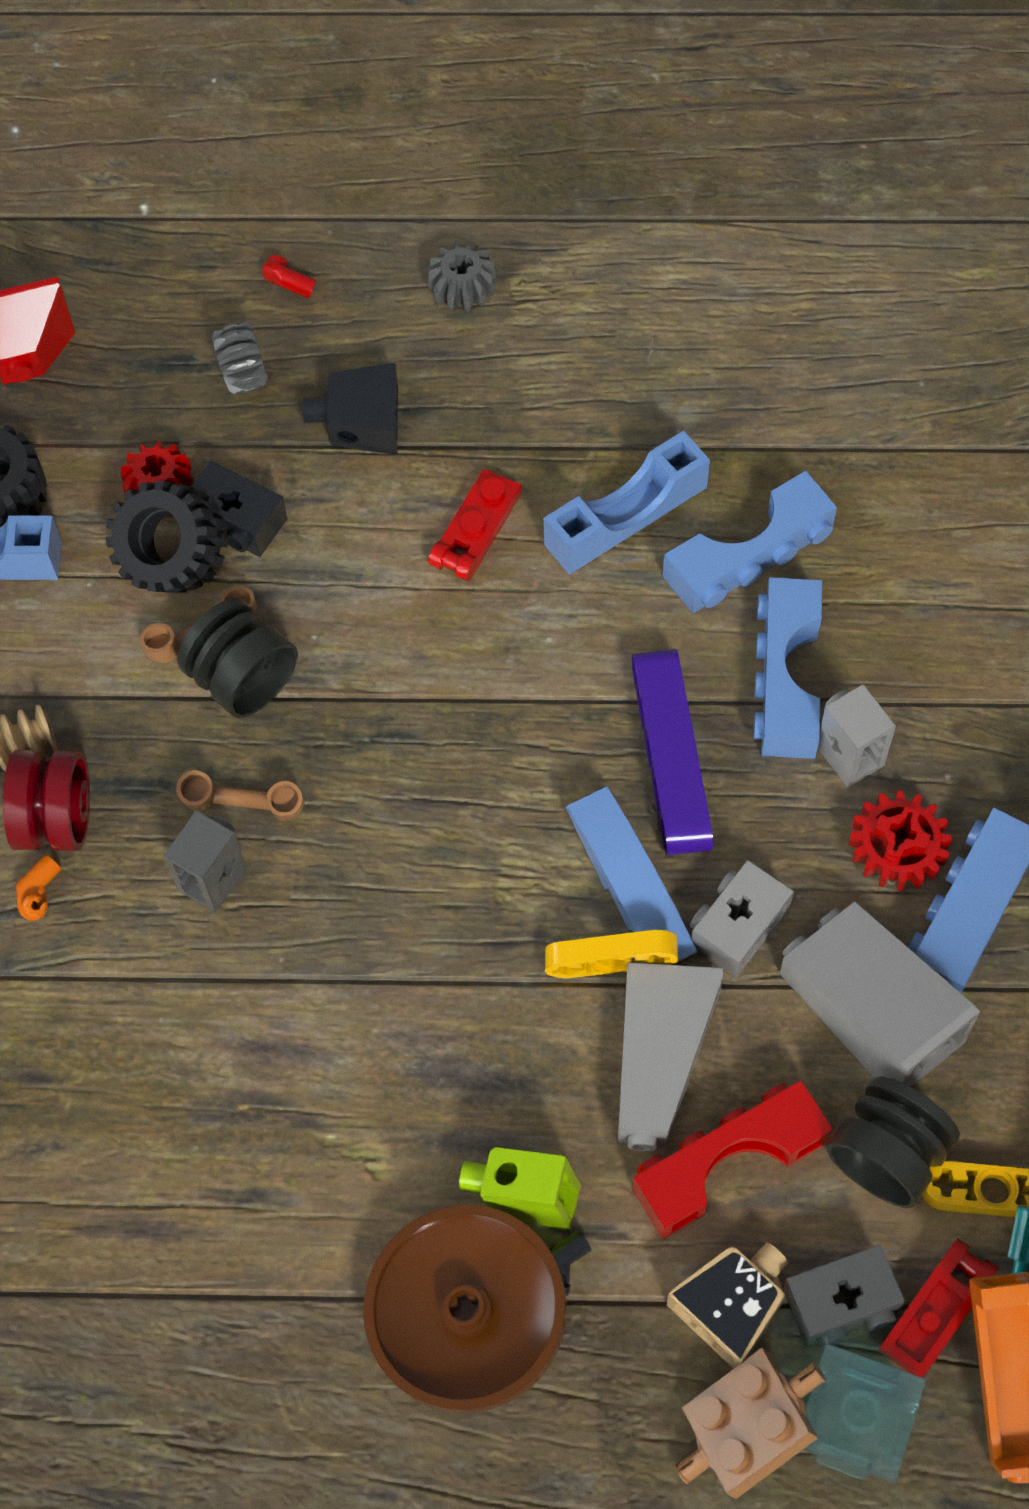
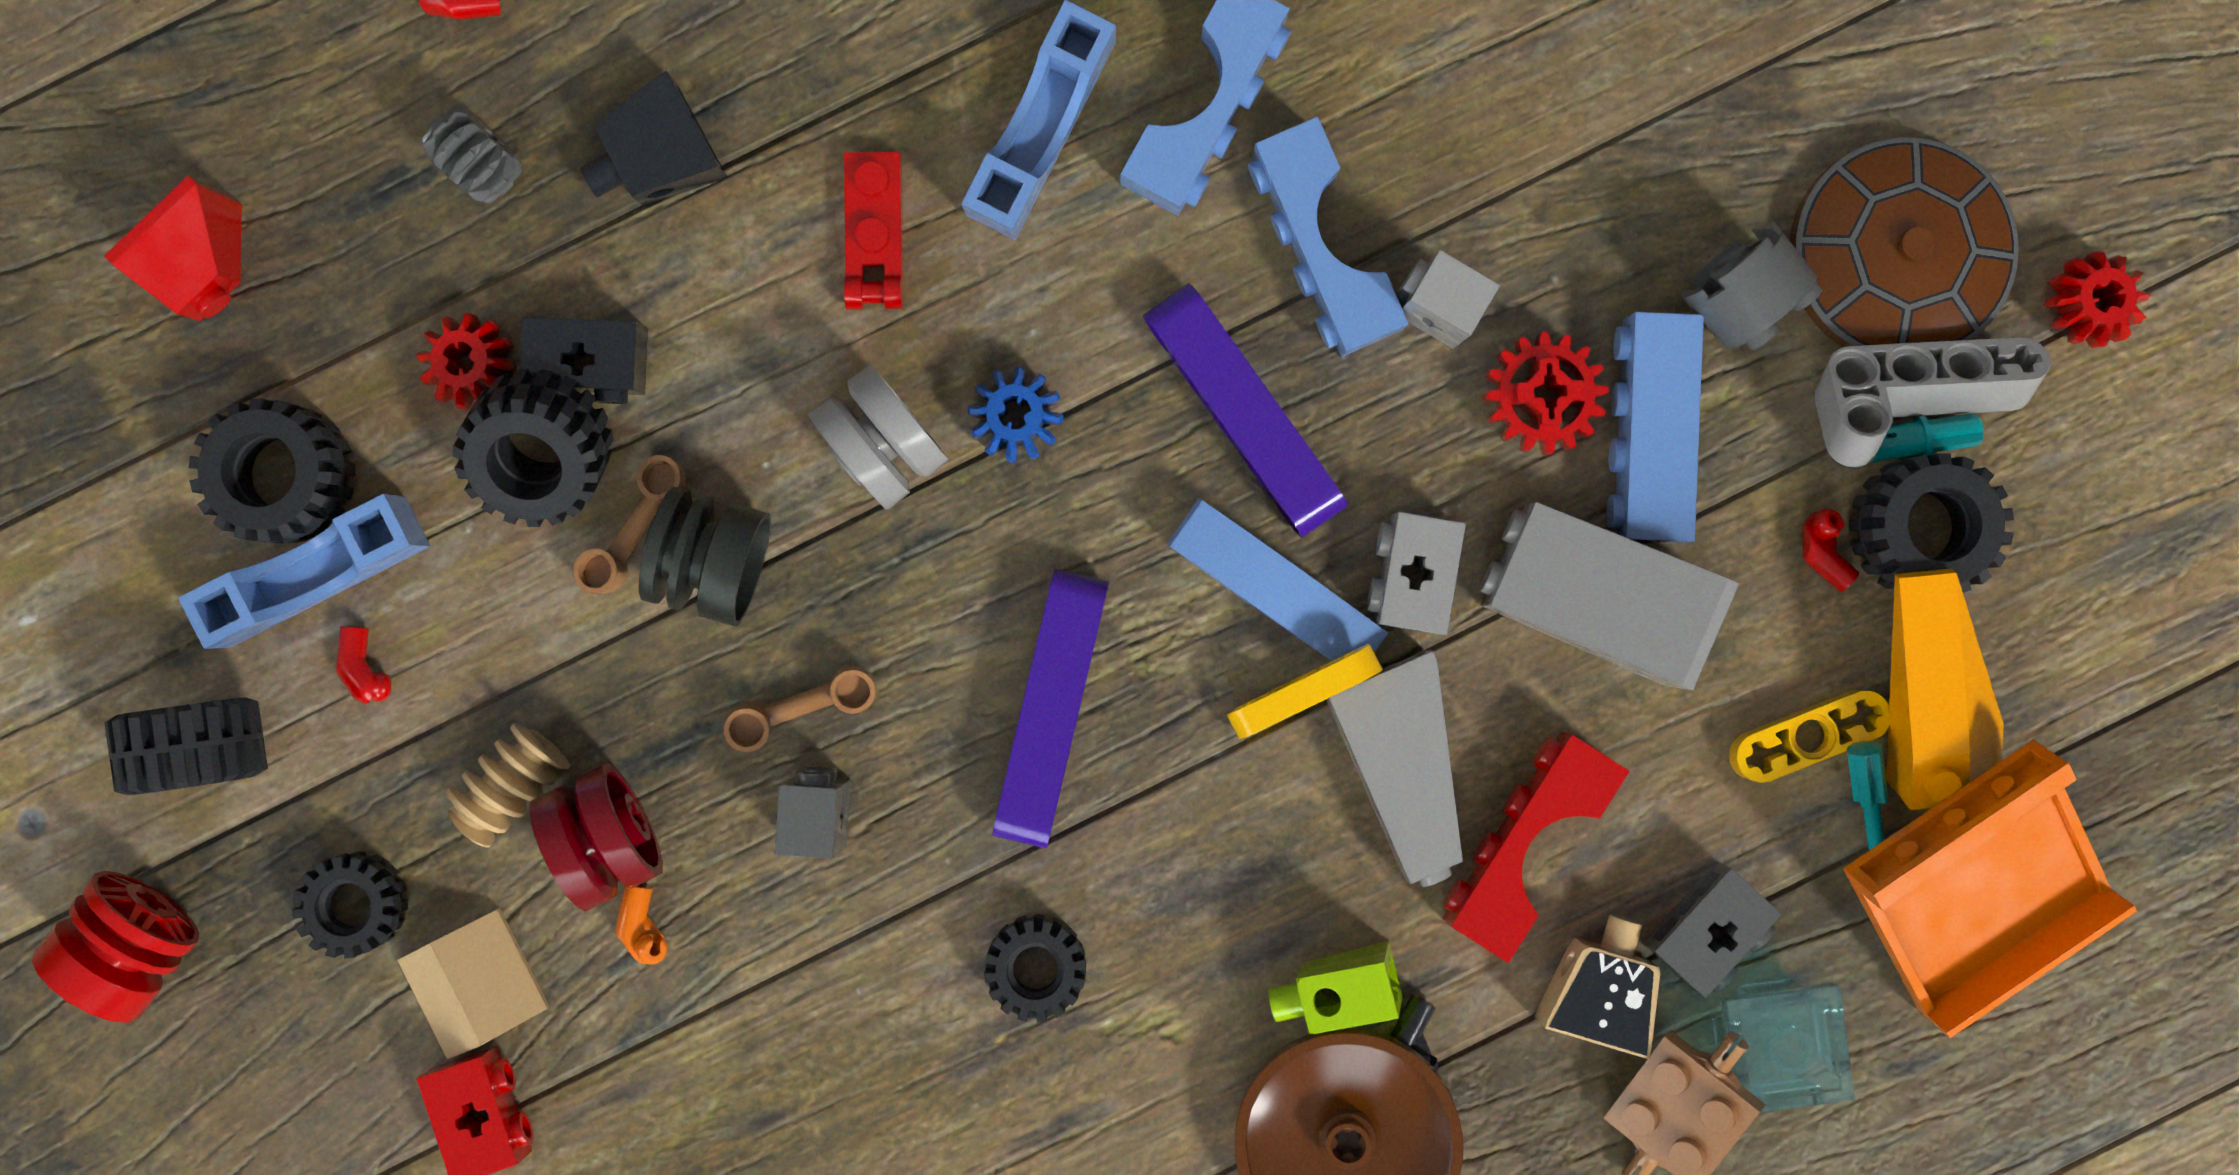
camera: 25 degrees left, 25 degrees up
(294, 1033) = (1024, 1000): none -> black tyre
(401, 638) = (875, 439): none -> light grey wheel
(417, 883) = (1050, 708): none -> dark purple beam
(498, 662) = (997, 409): none -> blue gear
(893, 1142) = (1698, 754): pearl dark grey wheel -> none
(935, 1312) = (1810, 890): red plate -> none

